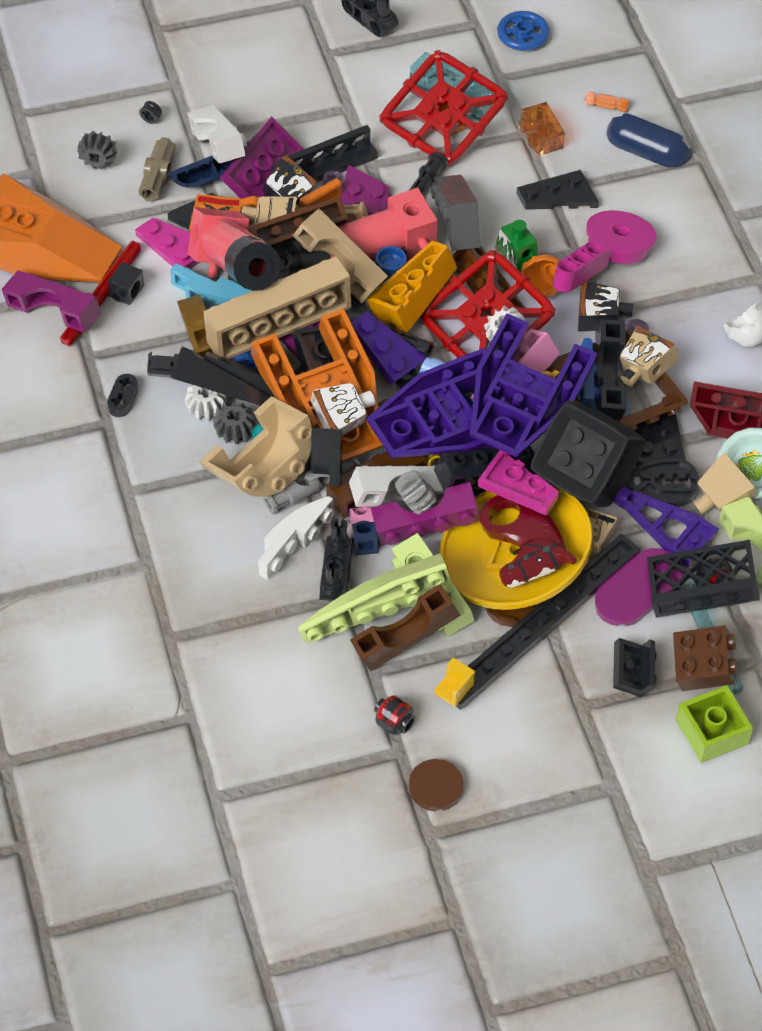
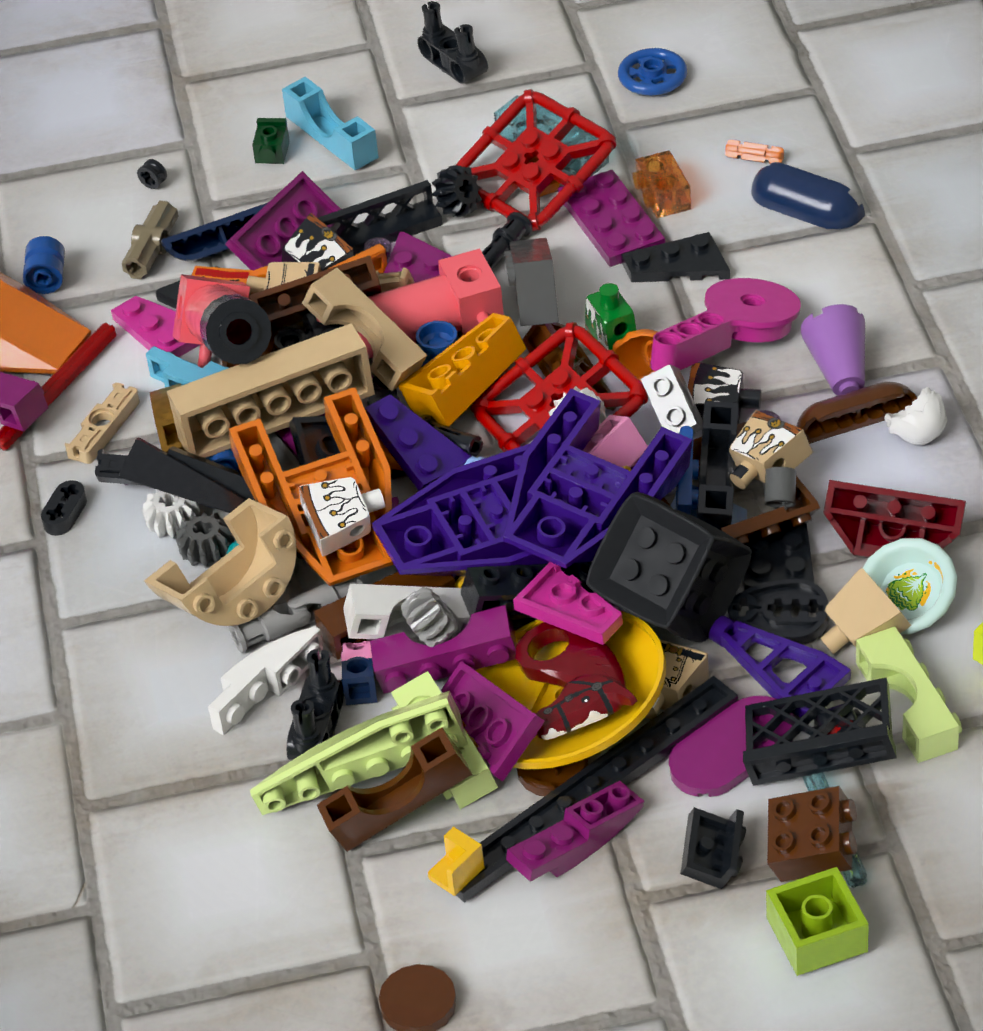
camera: 10 degrees right, 10 degrees down
(78, 190) = (44, 264): none -> blue wheel
(97, 150) = (74, 216): dark grey gear -> none
(125, 283) = (87, 373): black brick -> none
(137, 337) = (92, 438): none -> tan piece
(224, 138) = (231, 192): white arch -> none
(239, 85) = (271, 140): none -> dark green brick
(267, 60) = (349, 141): none -> medium azure arch
(327, 453) = (315, 569): black panel -> none
(389, 133) = (456, 191): none -> black gear
(394, 715) = (370, 906): black head -> none
(469, 570) = (492, 719): none -> magenta wing
(506, 156) = (612, 217): none -> magenta plate
(537, 657) = (579, 835): none -> magenta slope
(573, 316) = (672, 399): none -> brick
(659, 387) = (780, 487): none -> dark grey axle
(687, 270) = (838, 346): none -> medium lavender cone
(700, 319) = (854, 410): none -> reddish brown brick

